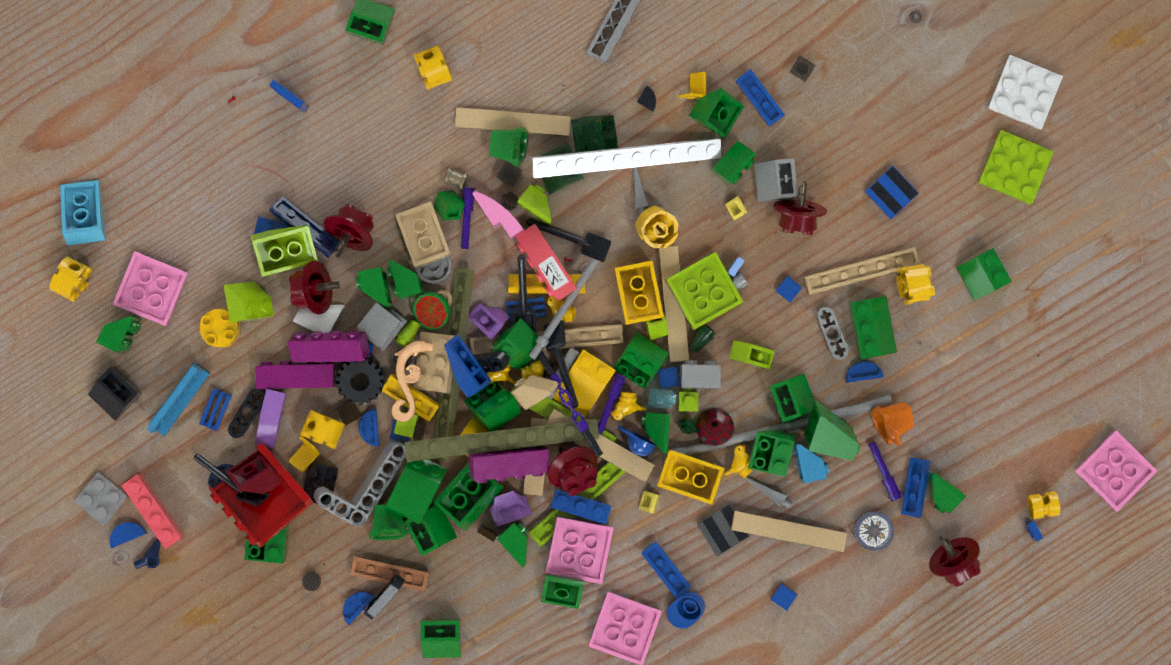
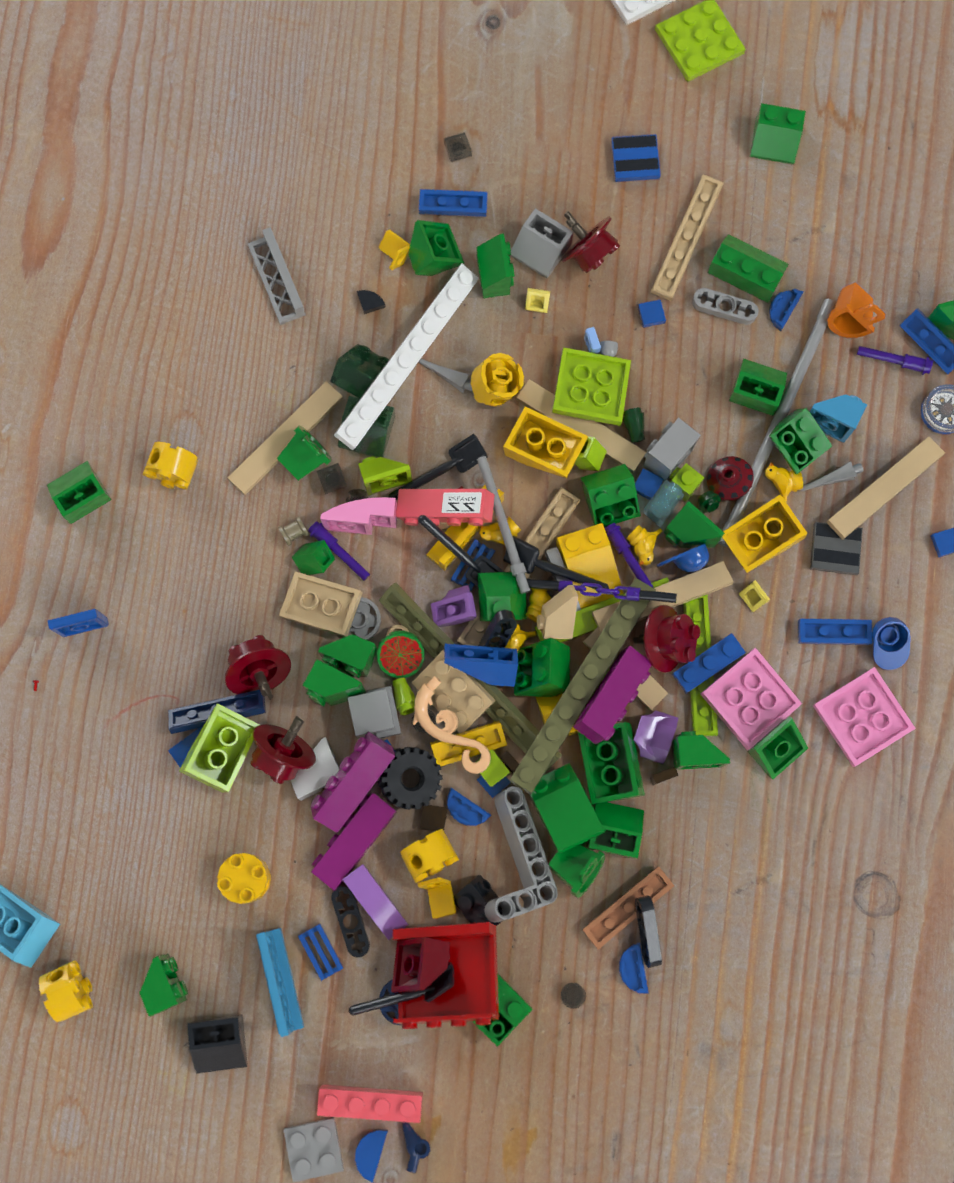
camera: 50 degrees left, 10 degrees down
(150, 288) = (146, 918): bright pink plate -> none
(247, 302) = (242, 828): lime slope -> none
(441, 638) = (735, 907): green slope -> none
(751, 354) = (686, 391): lime slope -> none
(830, 434) = (823, 375): green slope -> none
(915, 283) = (738, 196): yellow brick -> none

